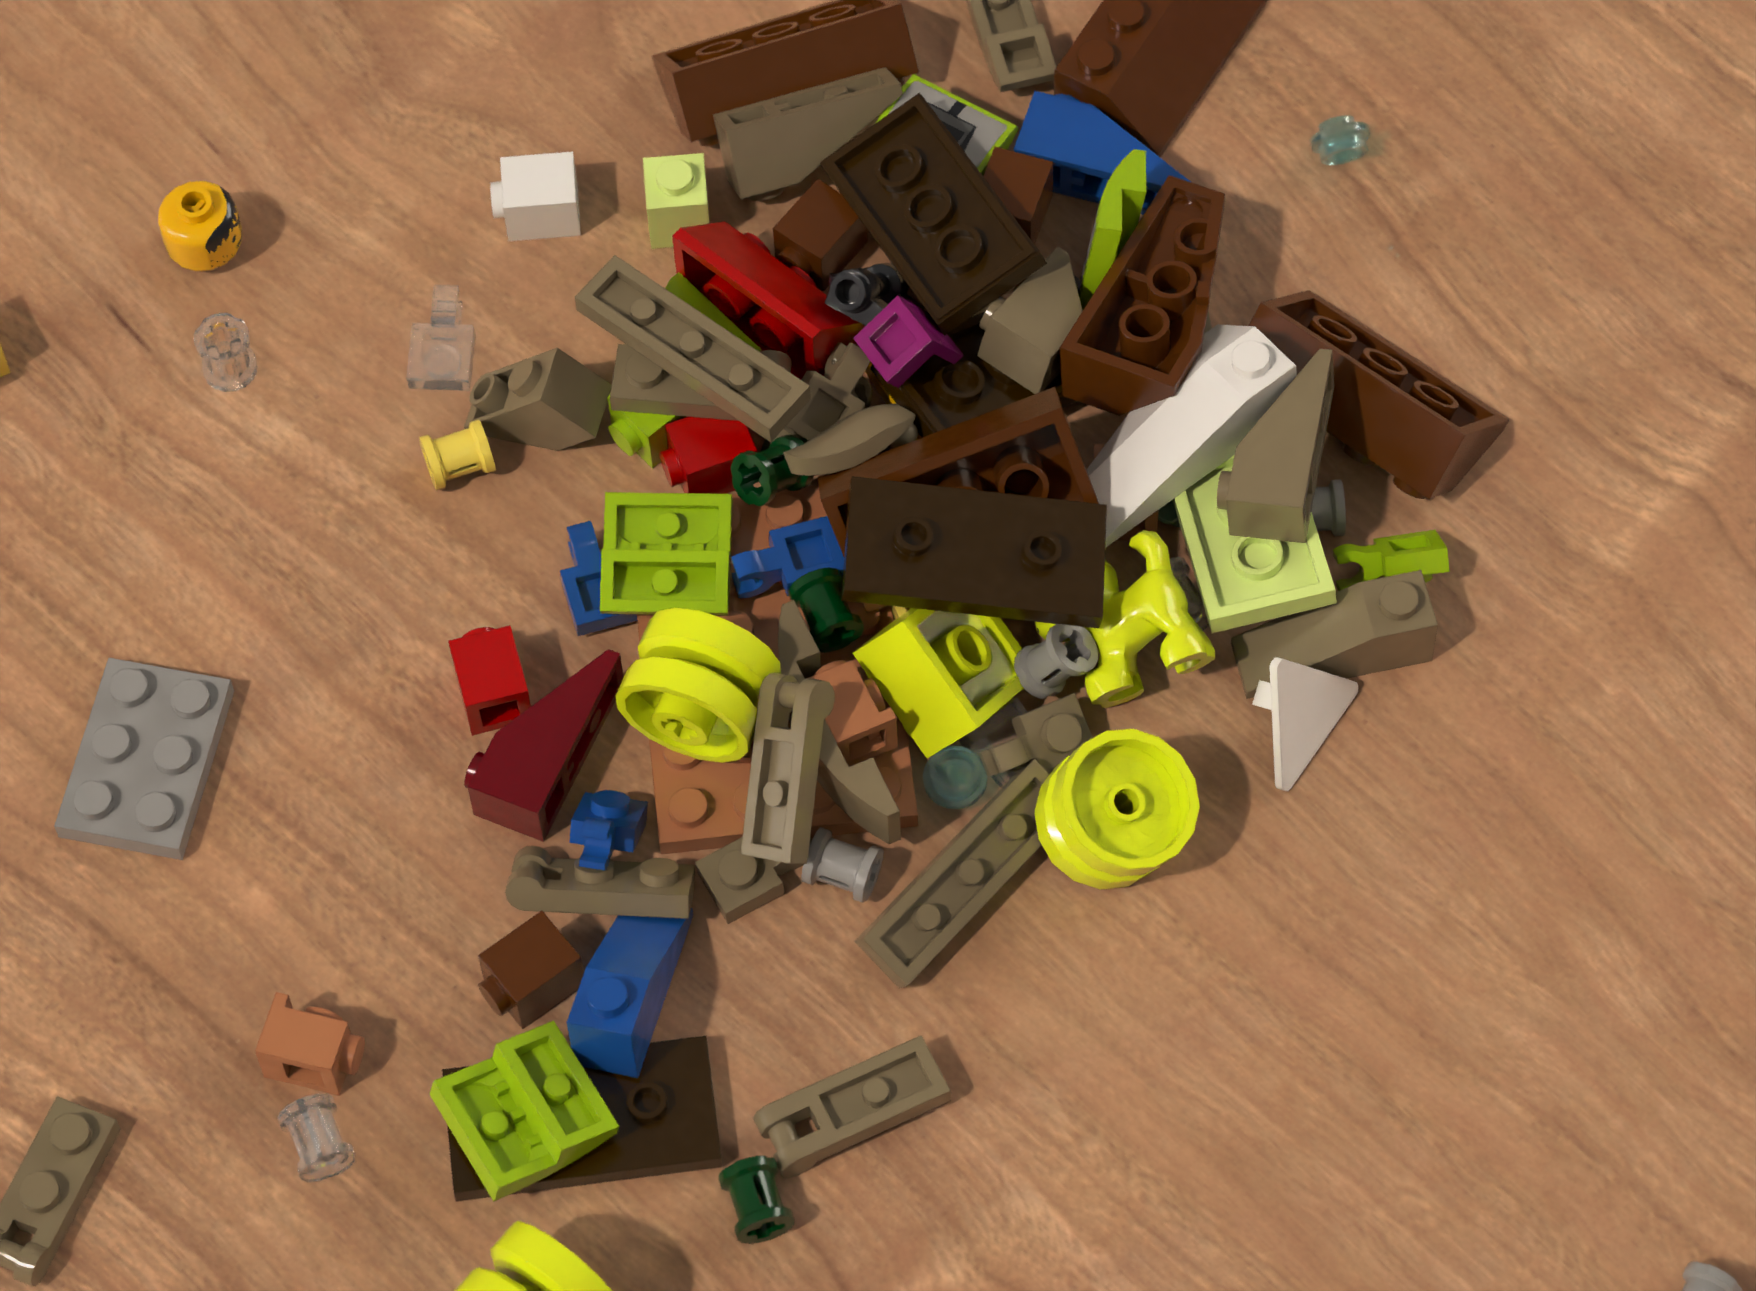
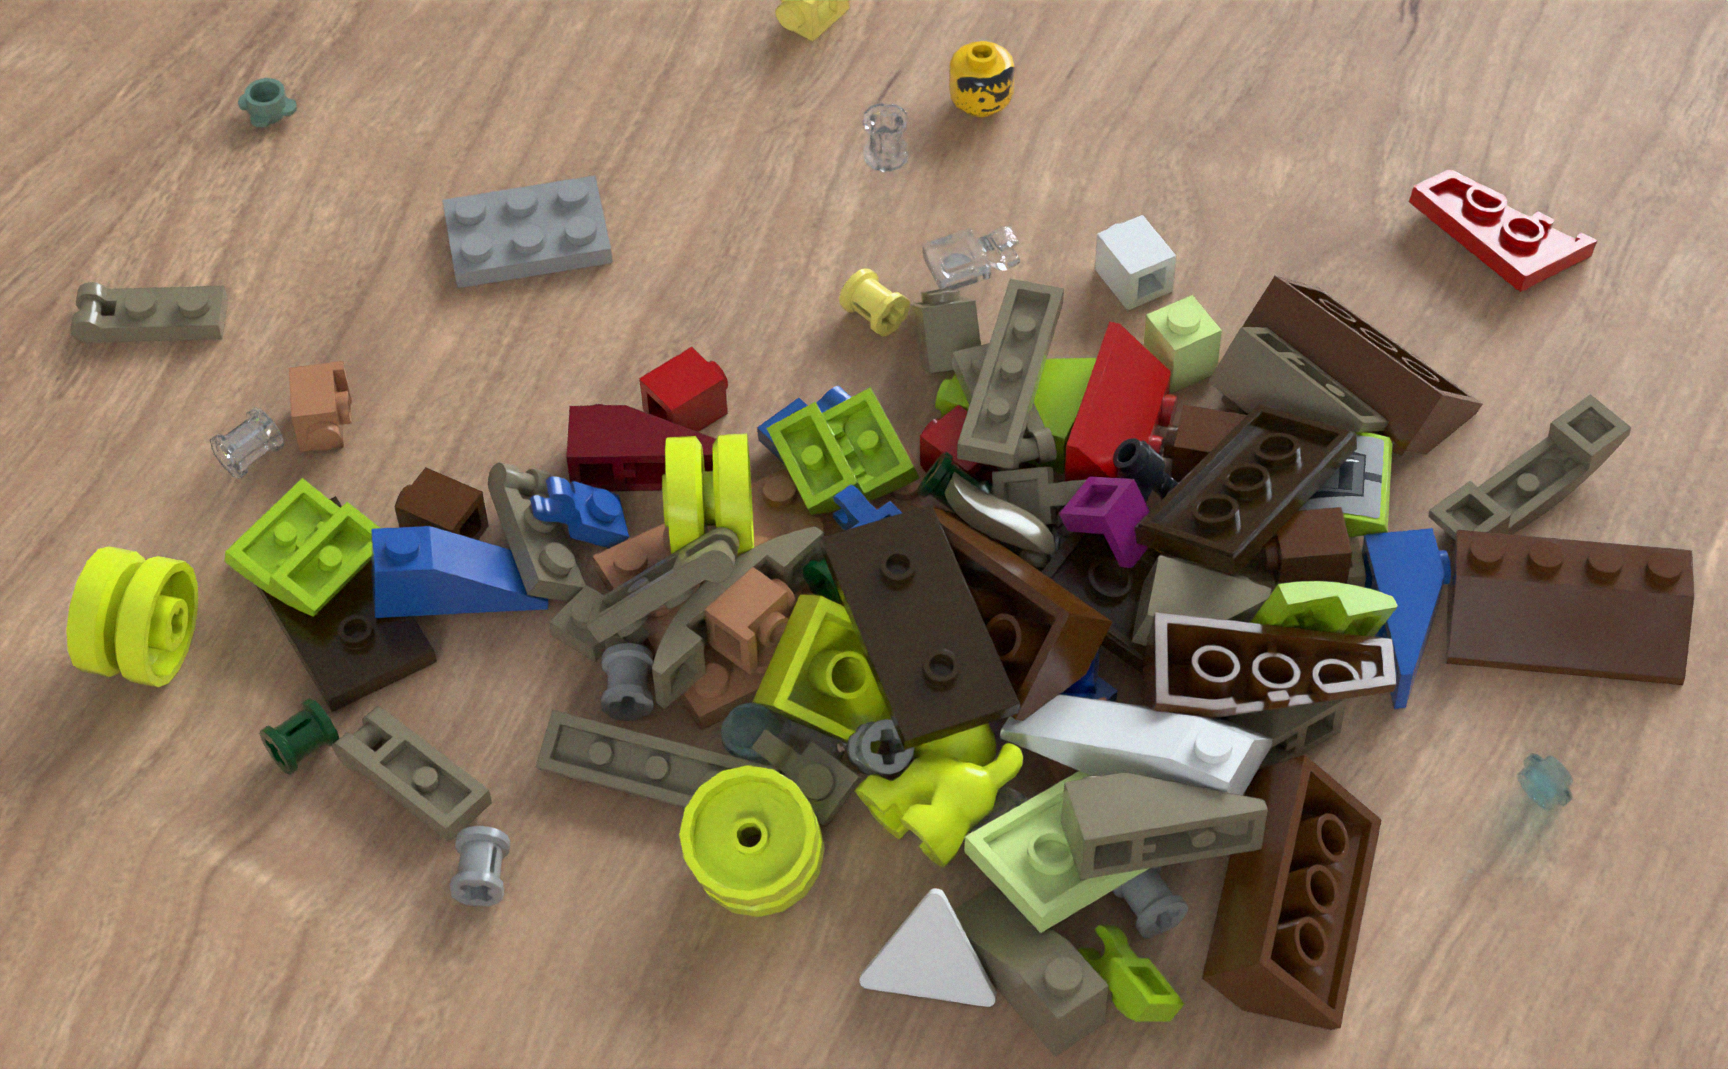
camera: 65 degrees right, 10 degrees down
(1004, 1076) = (480, 866): none -> light grey bush

